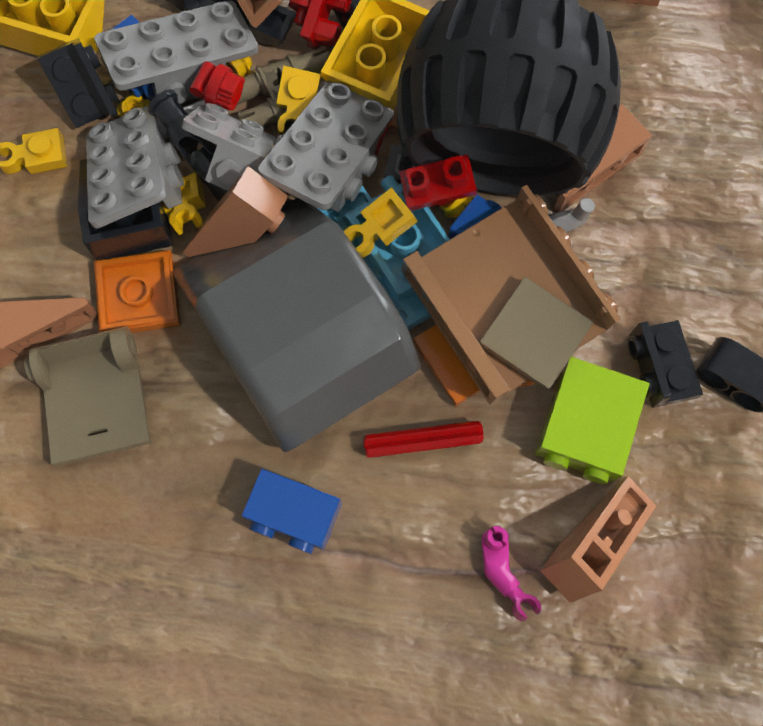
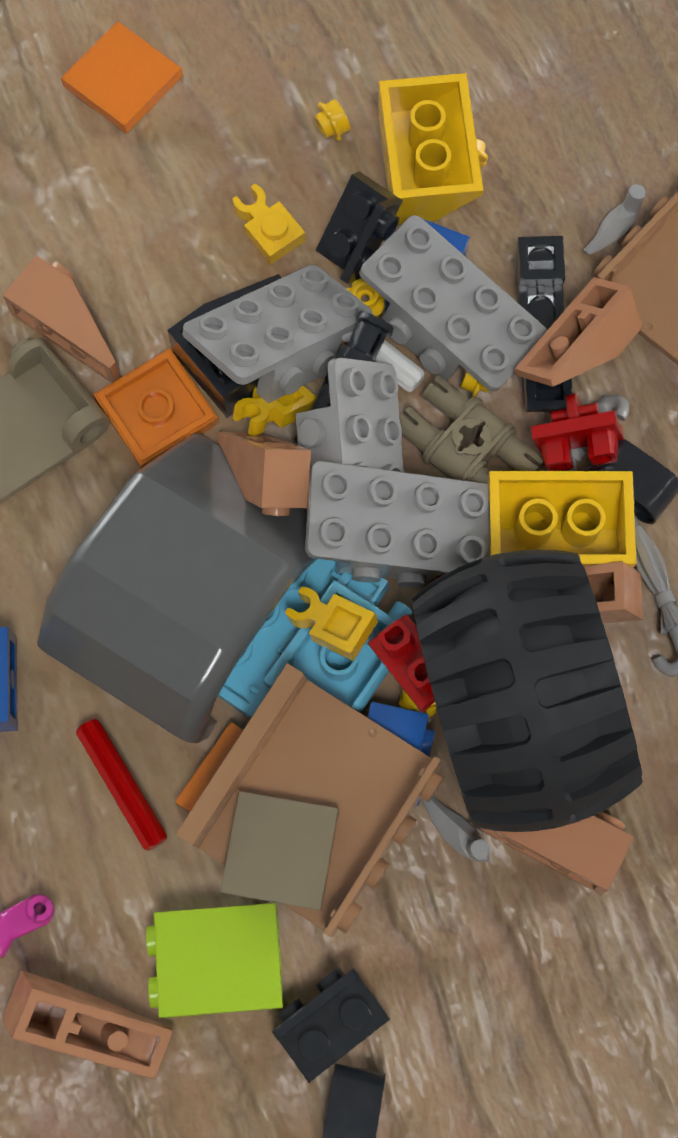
camera: 65 degrees right, 0 degrees up
(218, 85) = (421, 371): red piece -> none
(295, 93) = (455, 457): yellow plate -> none

